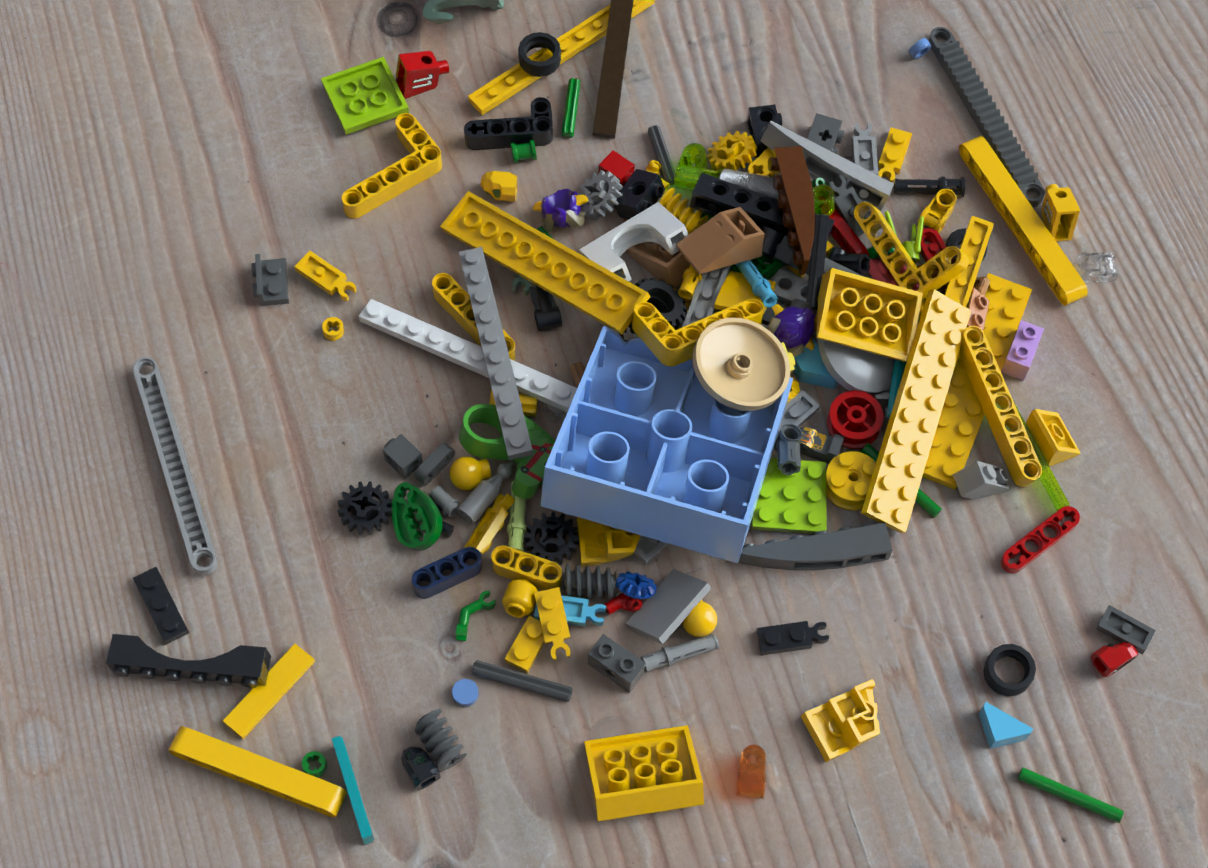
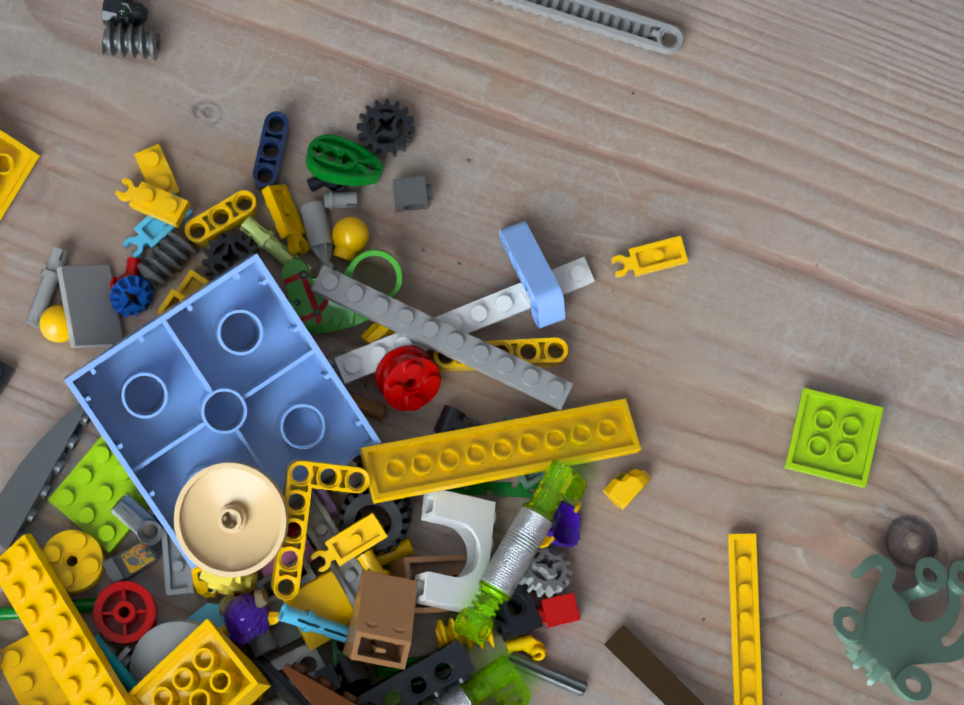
camera: 125 degrees right, 15 degrees up
(271, 281) = (684, 207): dark grey bracket -> none
(333, 322) = (583, 224): yellow bush -> none
(396, 333) = (534, 273): none -> light blue beam
(409, 134) = (715, 405): yellow beam -> none
(419, 72) = (820, 494): red torso -> none
(434, 463) = (382, 216): dark grey beam -> none
(465, 692) = (157, 93): medium blue tile -> none
(466, 611) = (226, 145): green arm -> none
(484, 136) = (687, 544): black beam -> none
(519, 598) = (200, 193): yellow head -> none
(522, 680) = (129, 144): dark grey axle -> none
(523, 151) = (651, 540): green bush -> none
(537, 40) = (764, 621): black tyre -> none
(541, 355) = (407, 378): none -> red wheel
(571, 107) = (670, 628): green axle -> none
(603, 200) = (518, 549): none -> piece
(616, 663) = (77, 226): dark grey brick -> none
(684, 301) = (351, 541): none -> yellow plate

